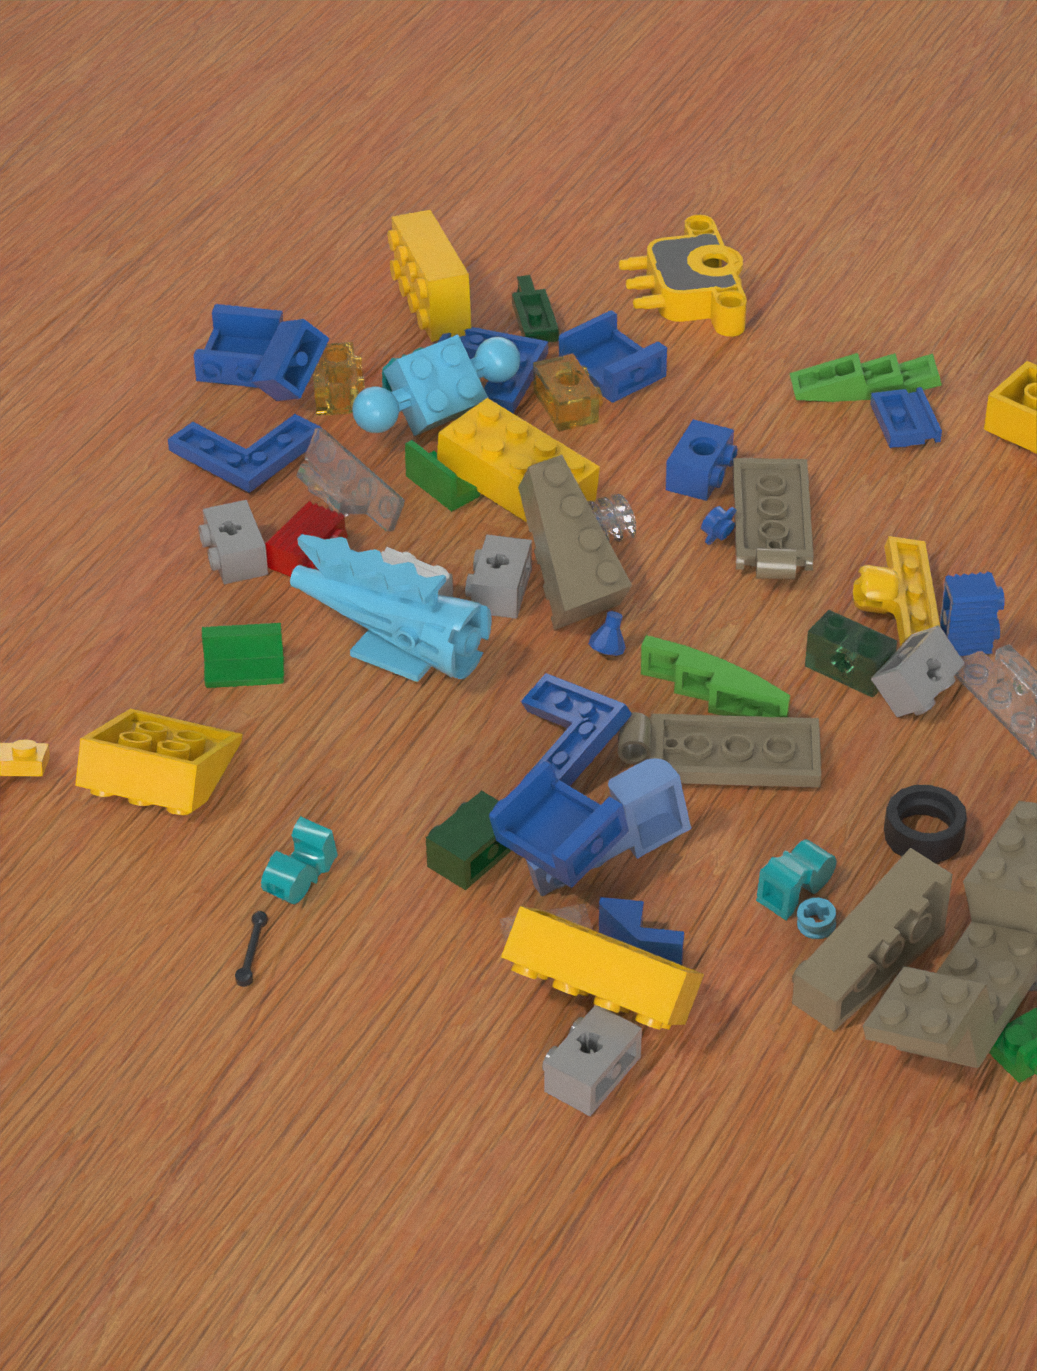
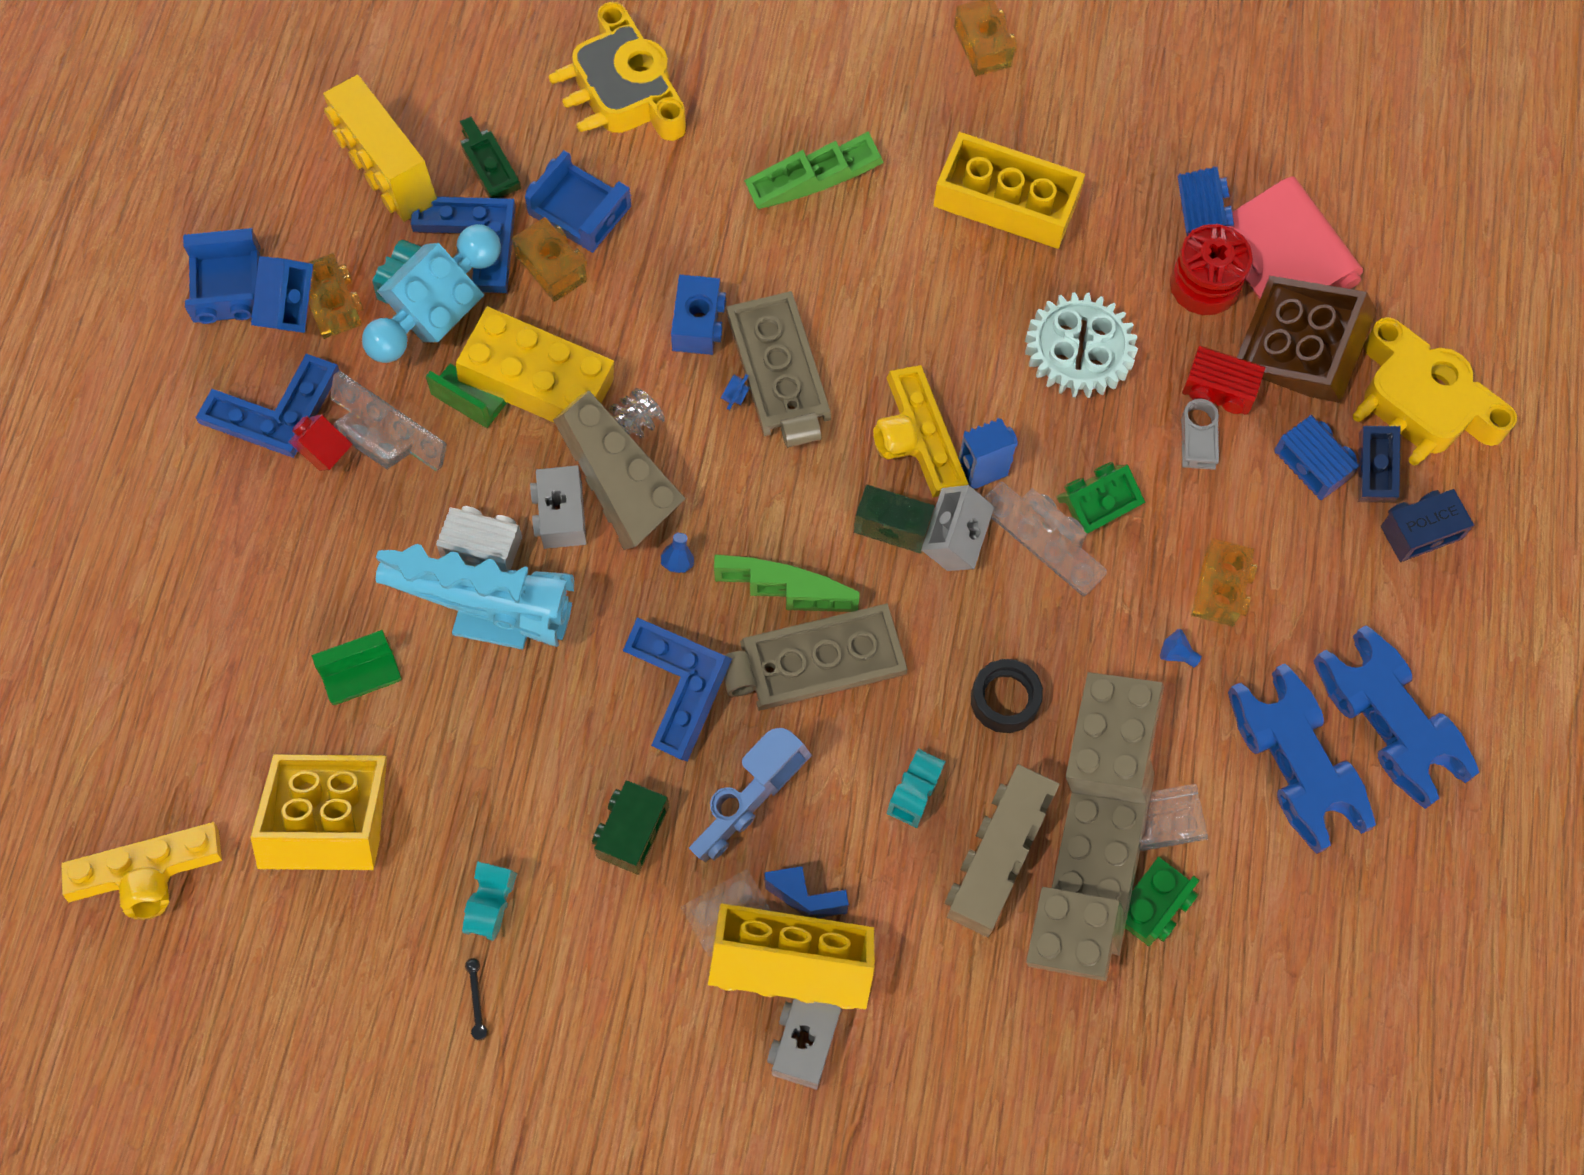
camera: 20 degrees left, 25 degrees up
(233, 542) = (295, 513): light grey brick -> none
(279, 476) = (319, 442): none -> red brick
(283, 548) = (369, 512): red brick -> none
(557, 825) = (708, 813): blue panel -> none
(825, 912) = (946, 813): medium azure bush -> none
(905, 417) = (862, 212): blue plate -> none

